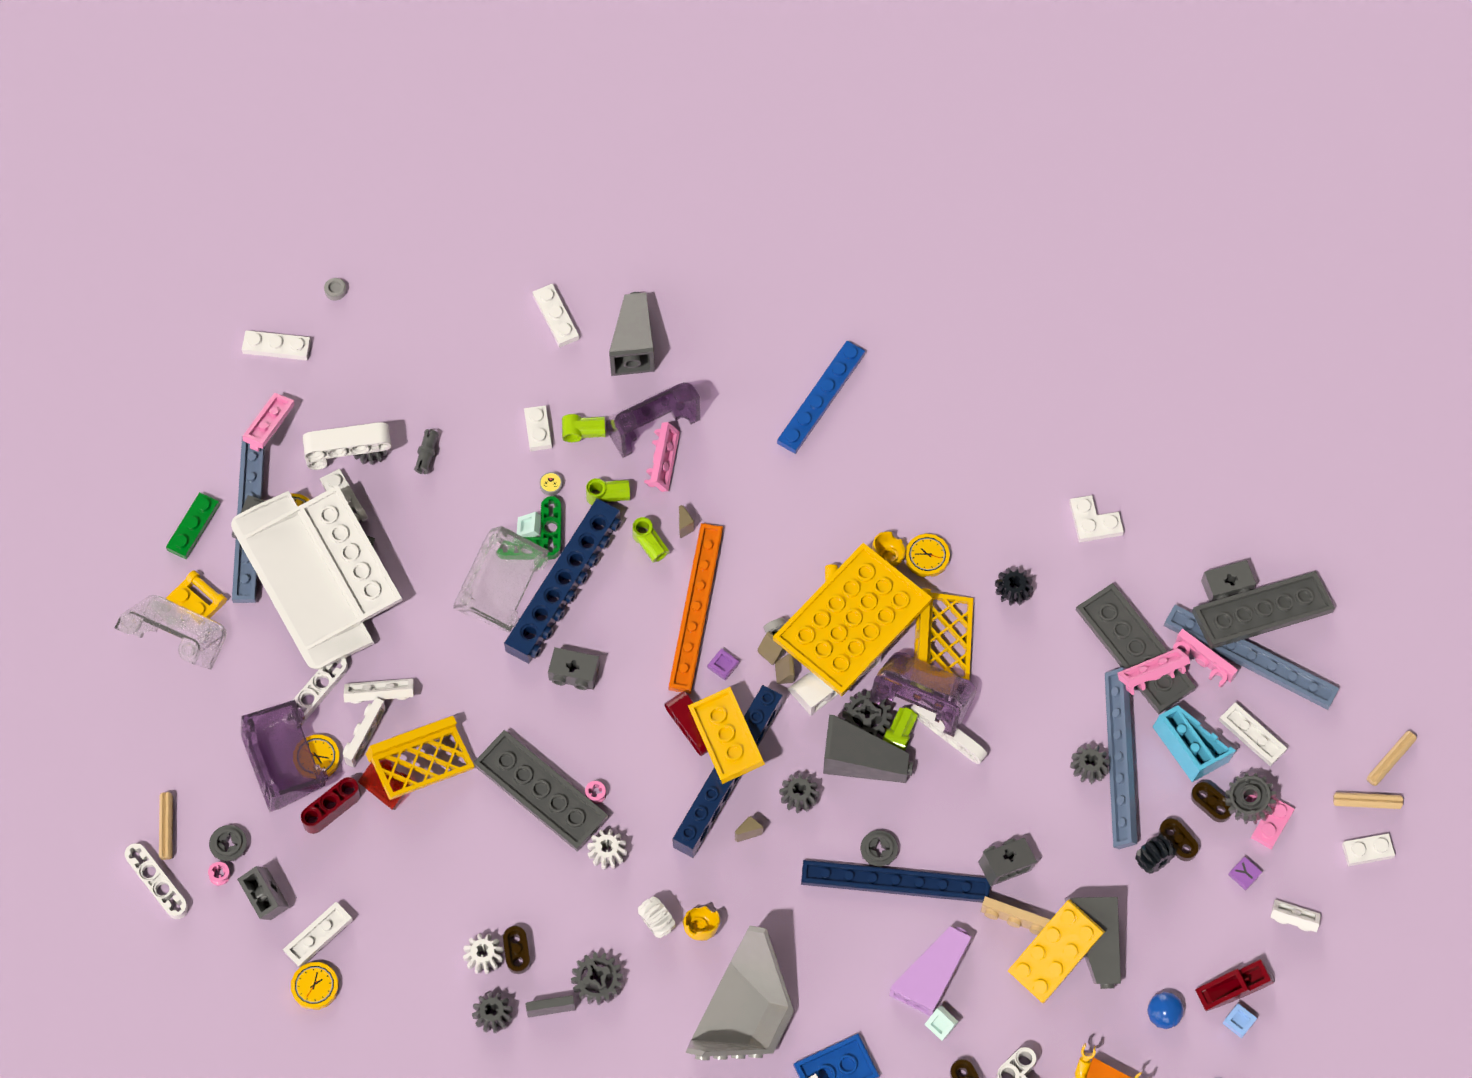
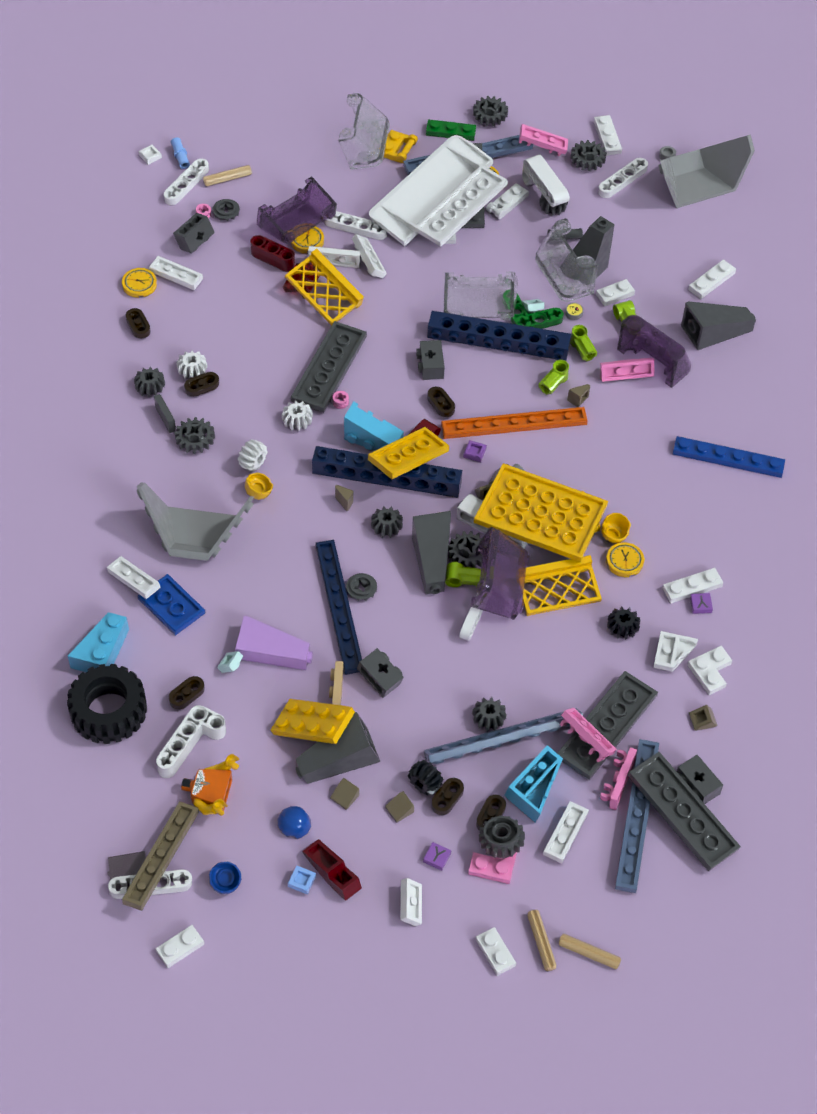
camera: 70 degrees right, 10 degrees down
(85, 916) = (150, 154): none -> white tile
(102, 875) = (180, 153): none -> light blue pin
(172, 467) = (492, 110): none -> dark grey gear
(314, 372) = (589, 155): none -> dark grey gear
(354, 354) = (621, 176): none -> white beam
(387, 1003) = (139, 326): none -> dark brown plate
(389, 255) = (707, 171): none -> light grey piece
(482, 434) = (597, 243): none -> dark grey slope
(483, 471) = (567, 274): none -> clear windscreen
(639, 676) = (444, 404): none -> dark brown plate
(666, 770) = (368, 431): none -> medium azure wedge
(982, 499) = (693, 584): none -> white plate
(1008, 498) = (701, 603): none -> medium lavender tile
(1061, 550) = (672, 650): none -> white wing
(1145, 946) = (345, 793): none -> dark tan slope
(1151, 551) = (703, 718): none -> dark tan slope
(1177, 893) = (400, 807): none -> dark tan slope

